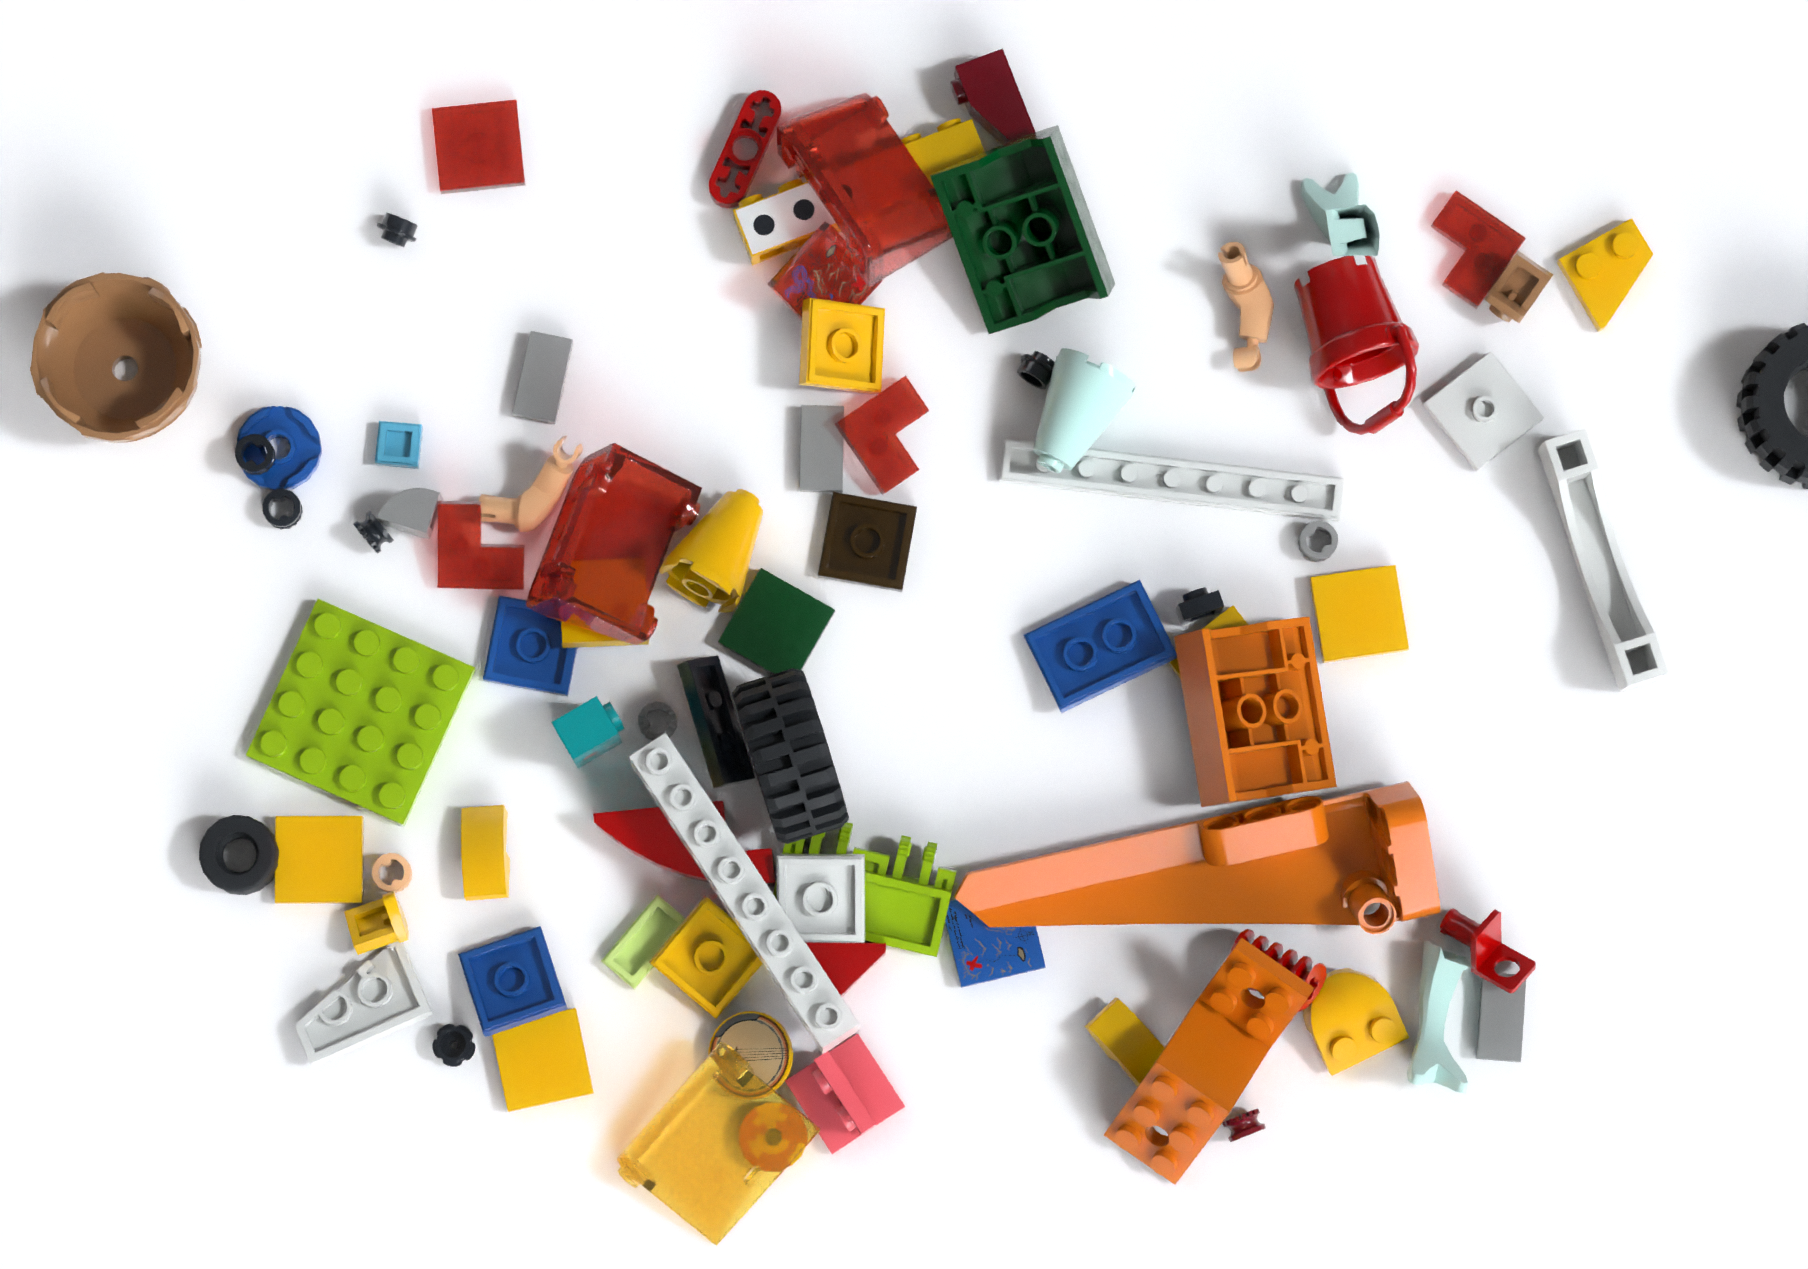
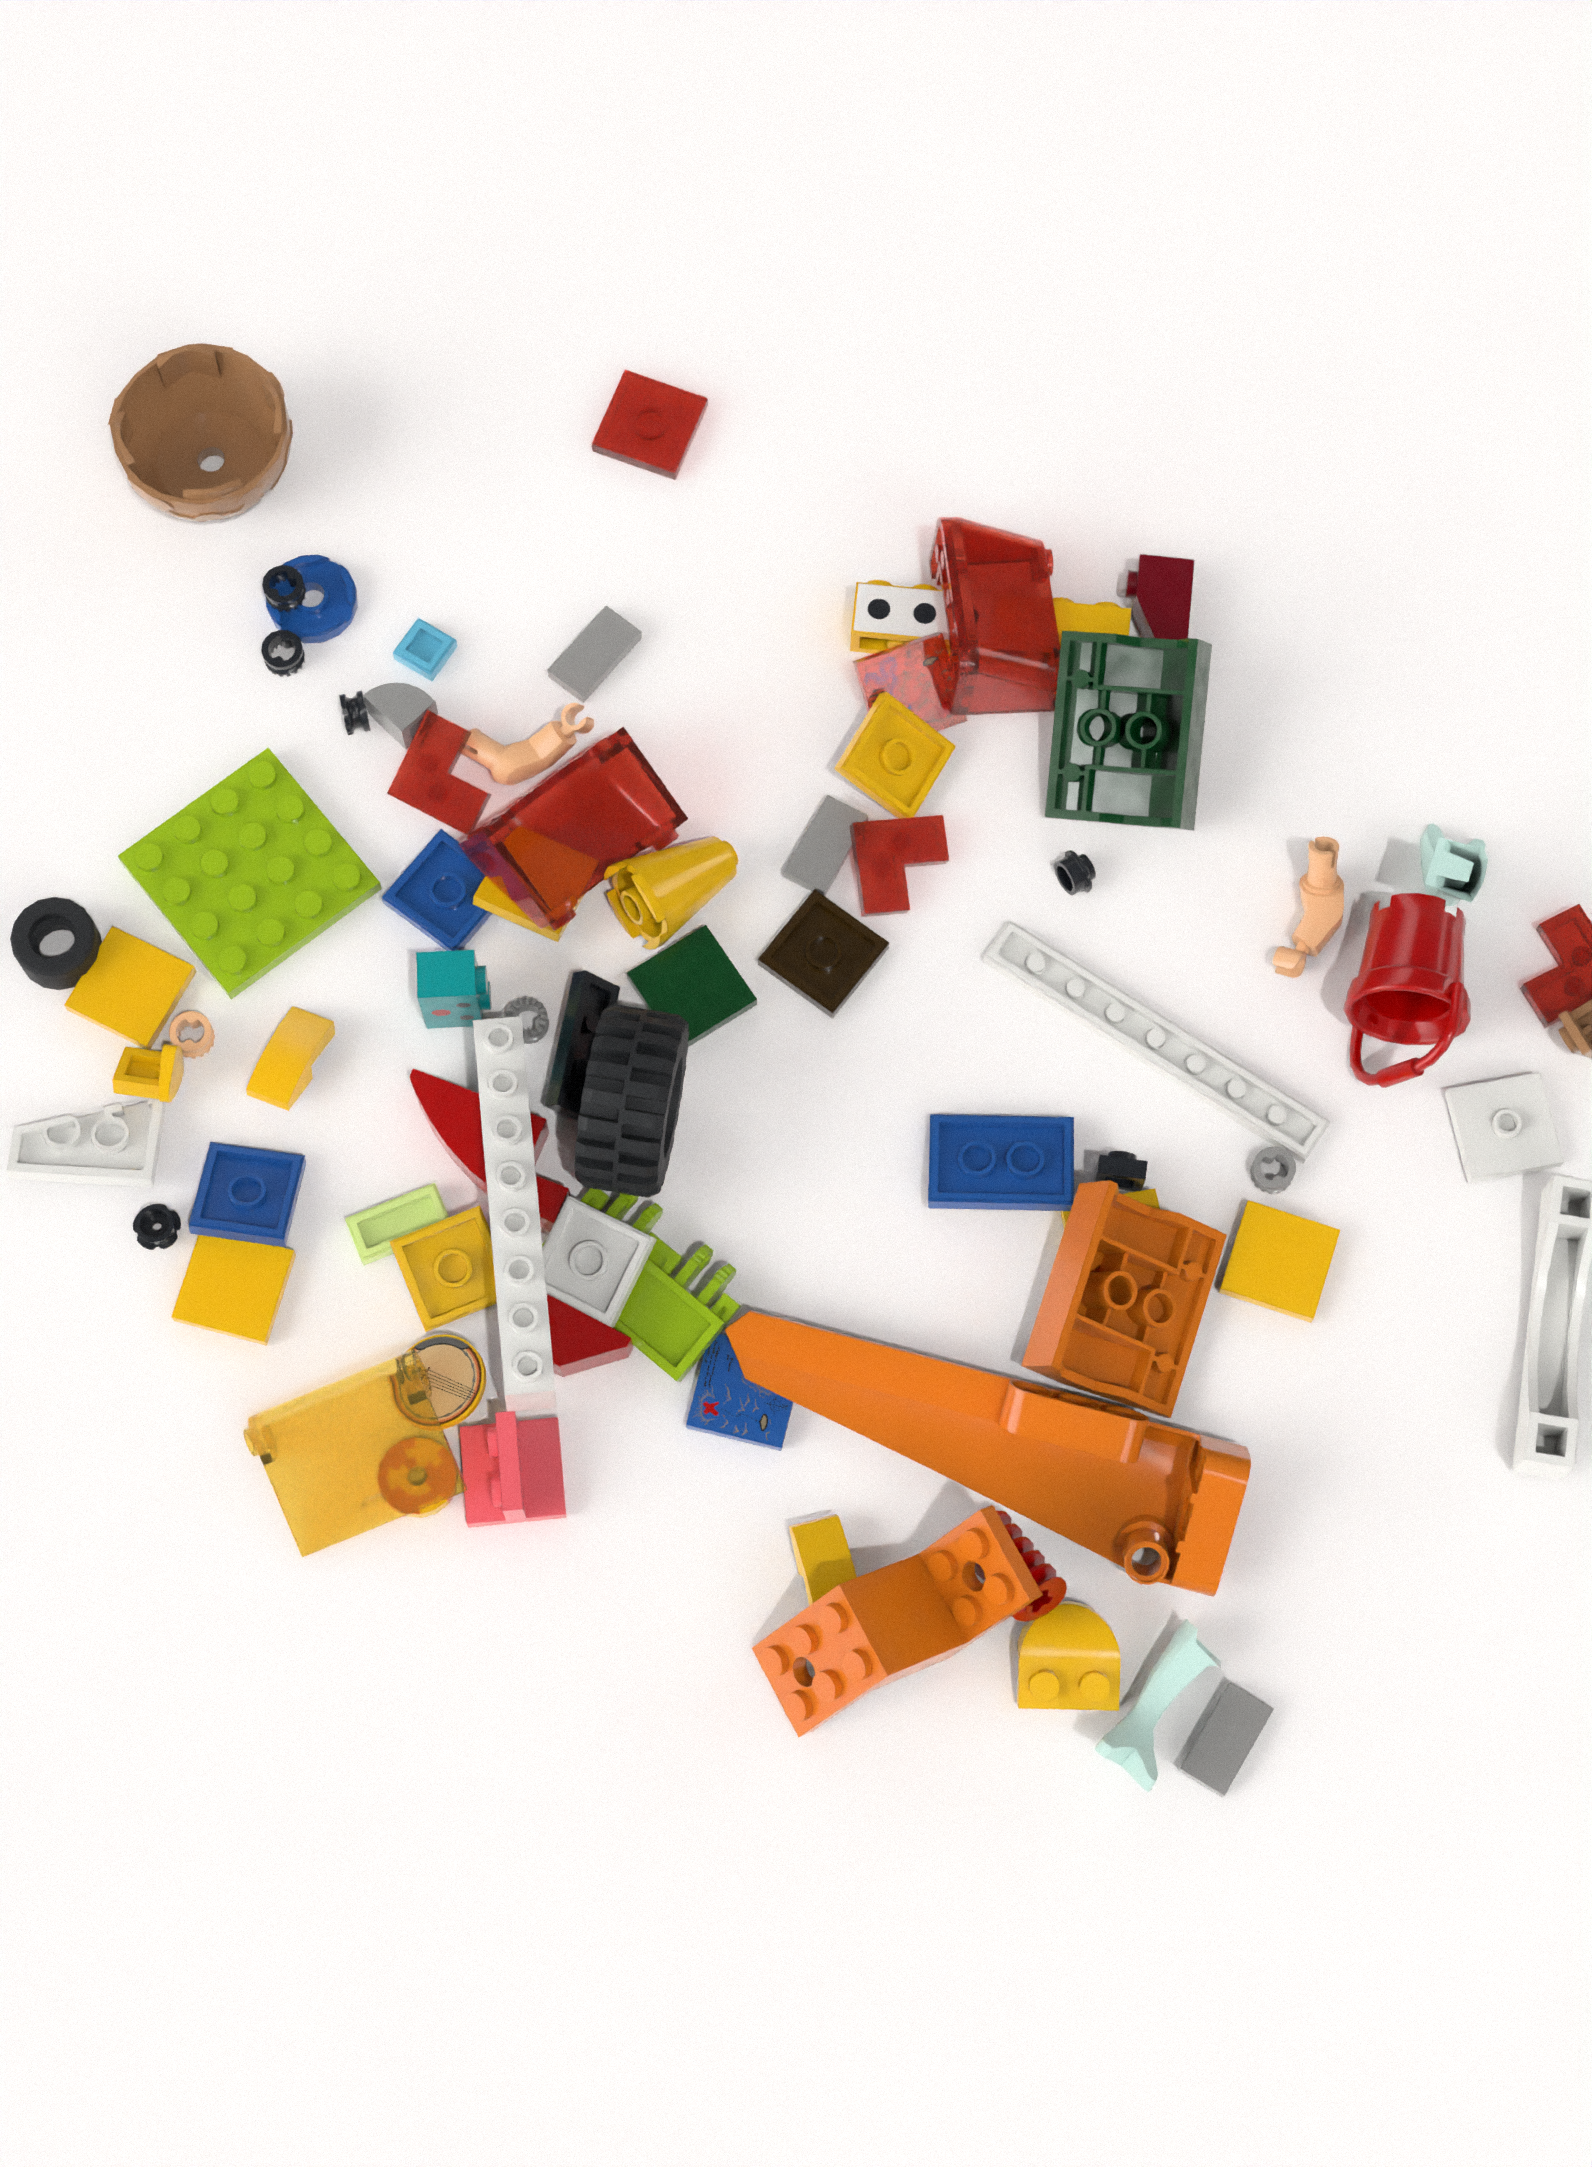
camera: 30 degrees right, 10 degrees down
(397, 230) = (532, 458): black plate -> none
(768, 125) = (904, 523): red beam -> none
(1078, 408) = (1097, 920): light aqua cone -> none
(1243, 1127) = (900, 1713): dark red bush -> none
(1487, 948) = (1246, 1658): red bracket -> none

